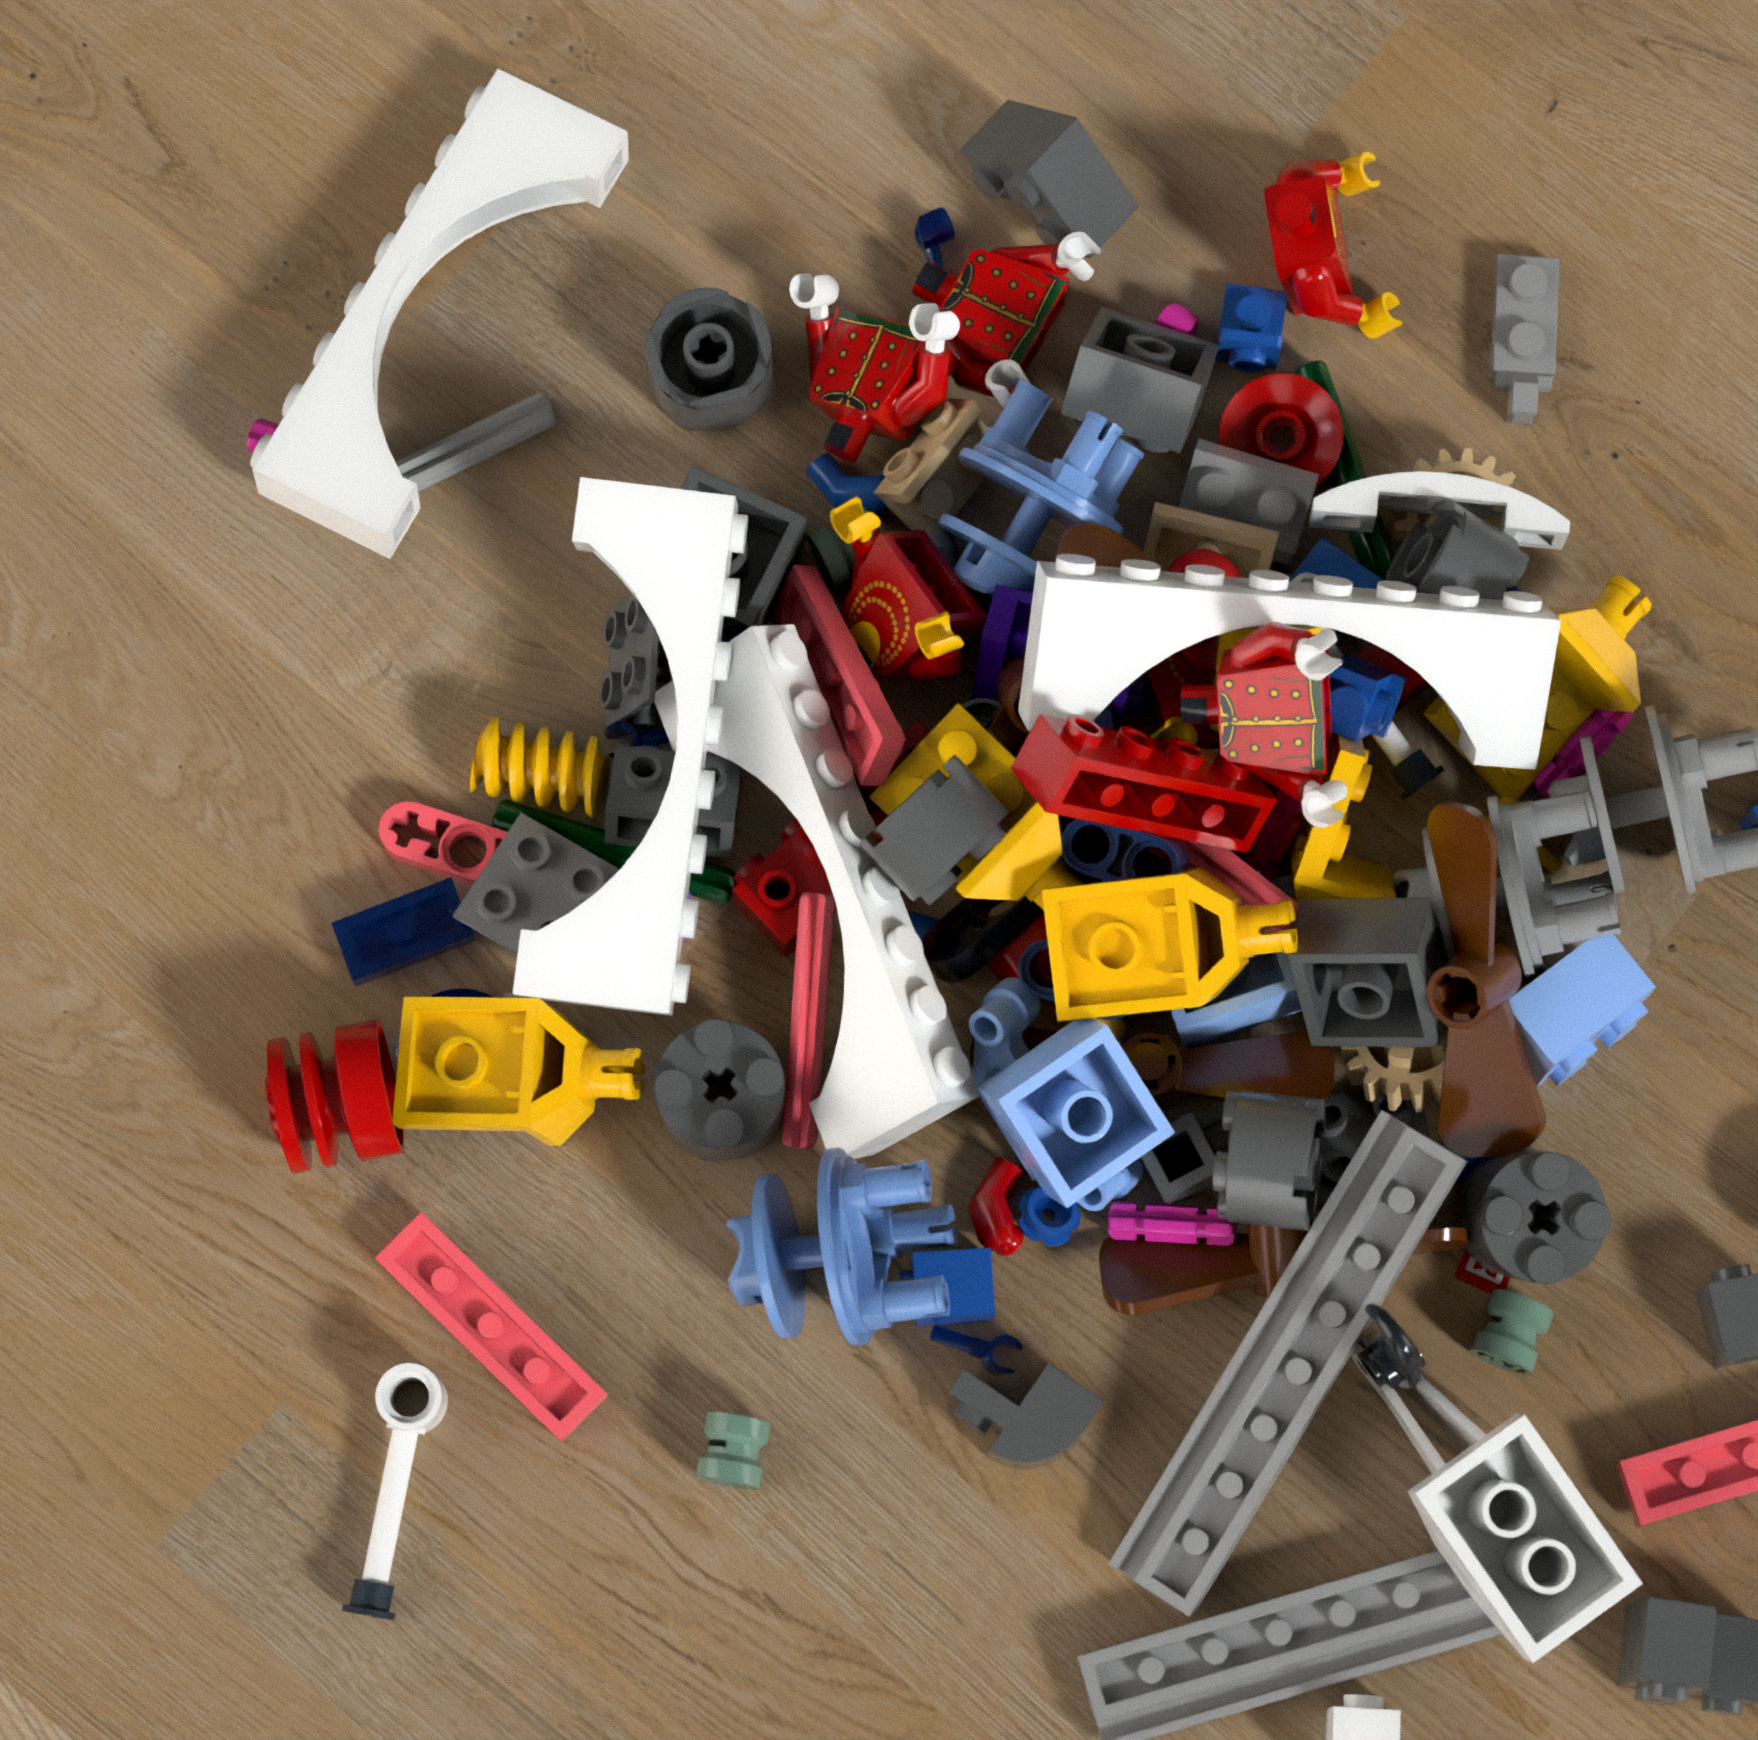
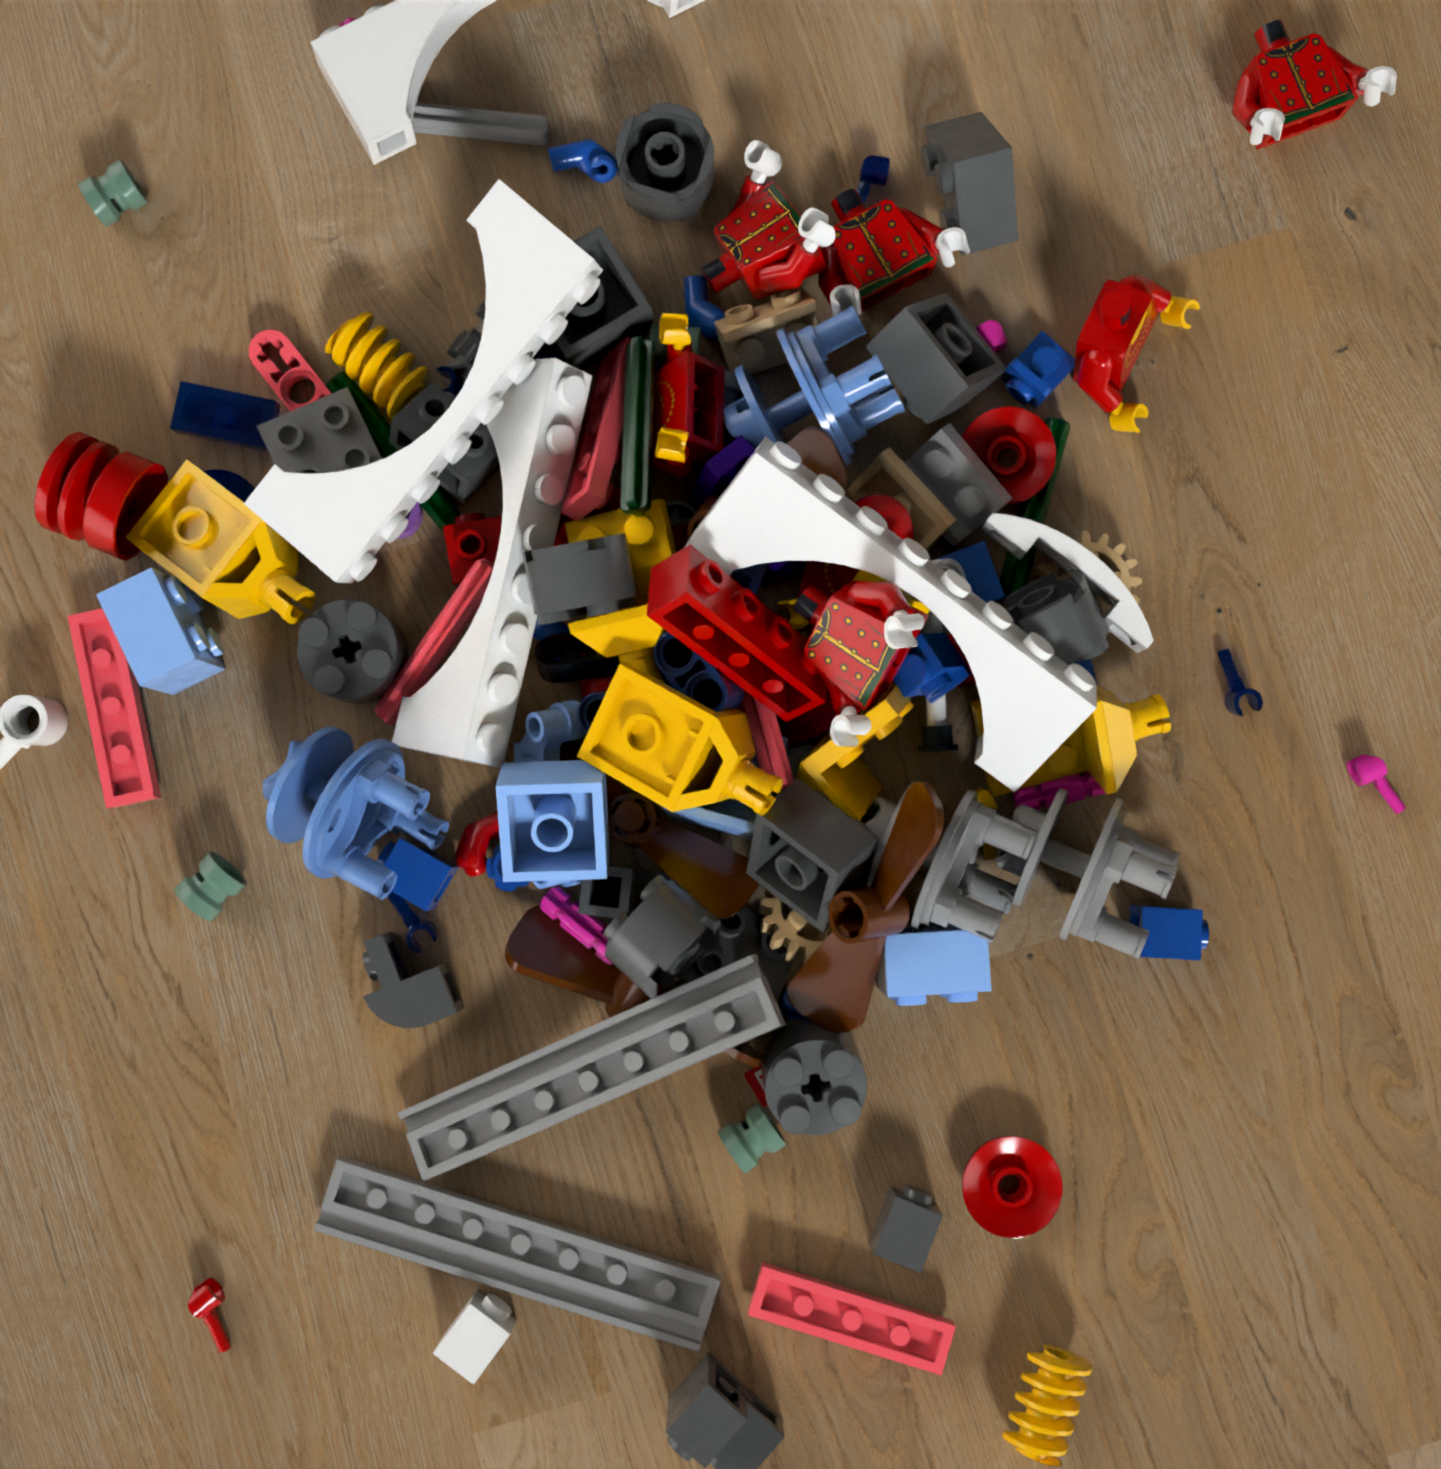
camera: 30 degrees right, 10 degrees up
(117, 769) = (113, 193): none -> sand green wheel
(502, 1199) = (162, 631): none -> light blue brick
(615, 408) = (587, 157): none -> blue arm
(881, 644) = (638, 427): none -> dark green axle
(1500, 1509) = (652, 1267): white slope -> none
(1524, 331) = (1217, 489): light grey hinge -> none
(1690, 522) = (1237, 686): none -> clear blue hand

